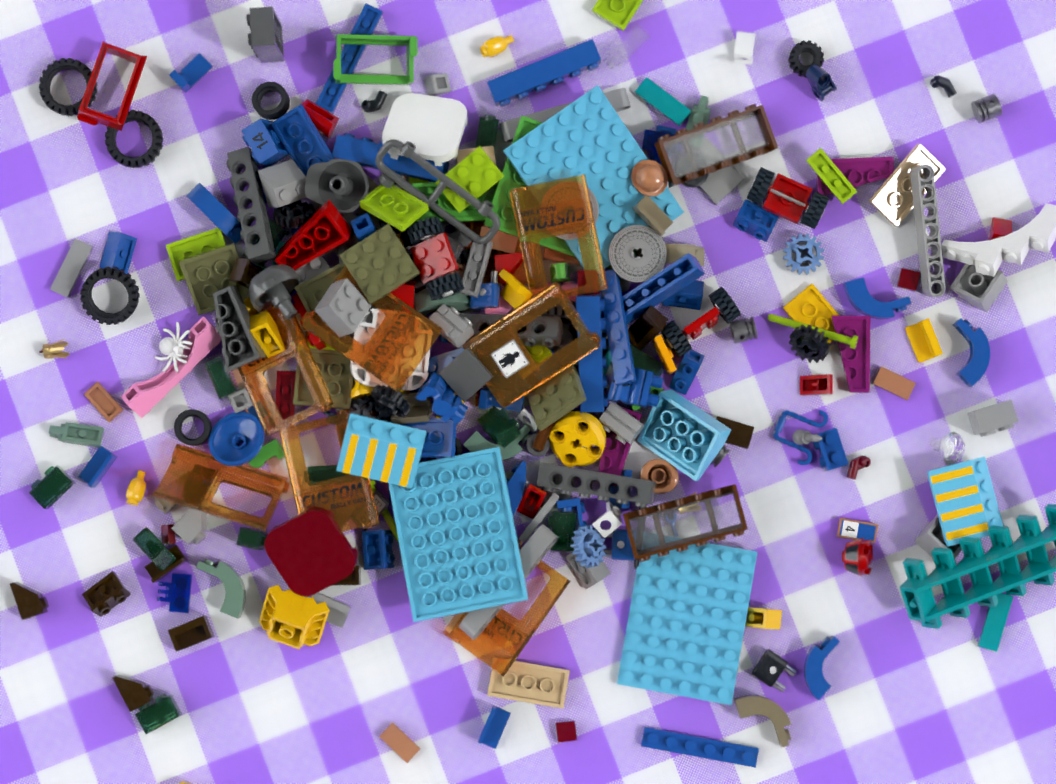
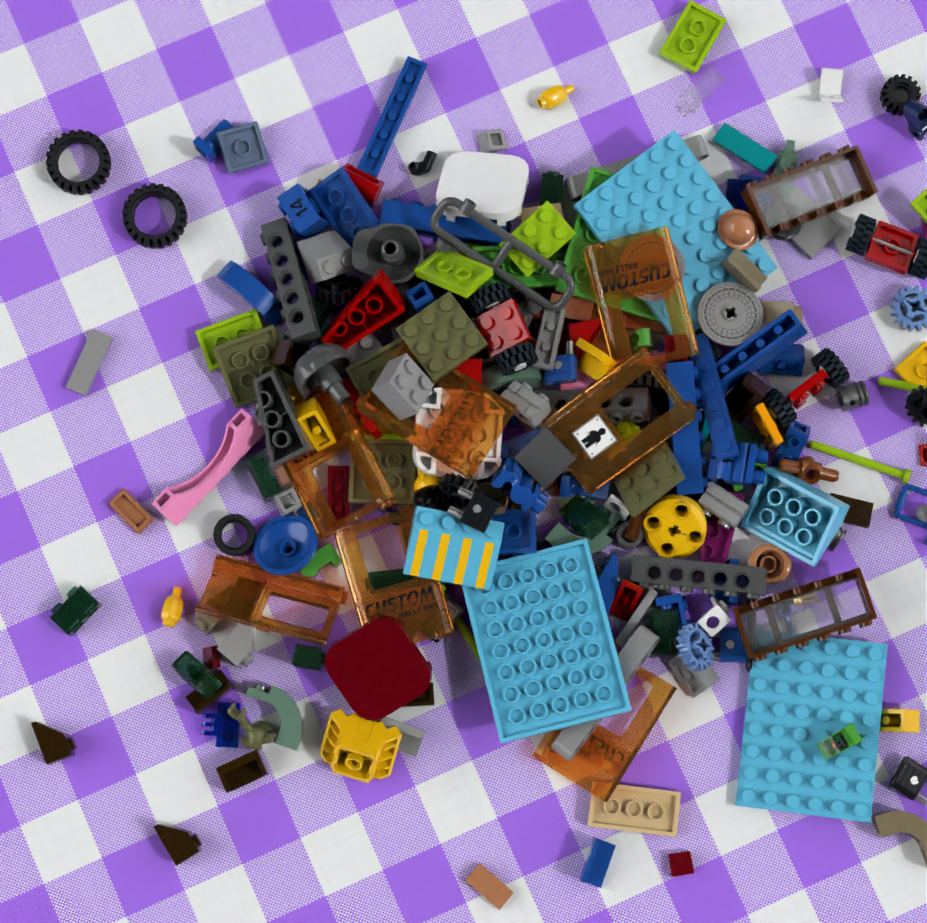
camera: 10 degrees left, 5 degrees down
(53, 350) = (69, 455): pearl gold piece -> none
(78, 434) = (103, 548): sand green hinge -> none
(94, 117) = (108, 191): red piece -> none
(94, 311) = (134, 415): black tyre -> none
(97, 466) = (127, 585): blue panel -> none
(106, 594) = (142, 731): dark brown bracket -> none
(118, 251) = (141, 342): blue panel -> none
(158, 713) = (208, 866): clear green brick -> none
(173, 347) = (209, 445): white animal -> none
(203, 601) = (255, 734): none -> olive piece
(214, 80) = (242, 147): none -> sand blue plate
(262, 90) = (306, 152): black tyre -> none
(265, 34) = (299, 91): dark grey brick -> none
(348, 39) = (459, 95): bright green piece -> none
(378, 549) = (452, 664): blue bracket -> none
(403, 421) = (478, 511): none -> black piece
(544, 72) = (610, 123): blue brick -> none
(699, 394) = (808, 470): none -> dark orange axle
(700, 747) = (835, 874): blue plate -> none
(708, 634) = (839, 741): none -> leg
(748, 388) = (903, 475): none -> lime bar
(755, 220) = (857, 274): blue bracket -> none

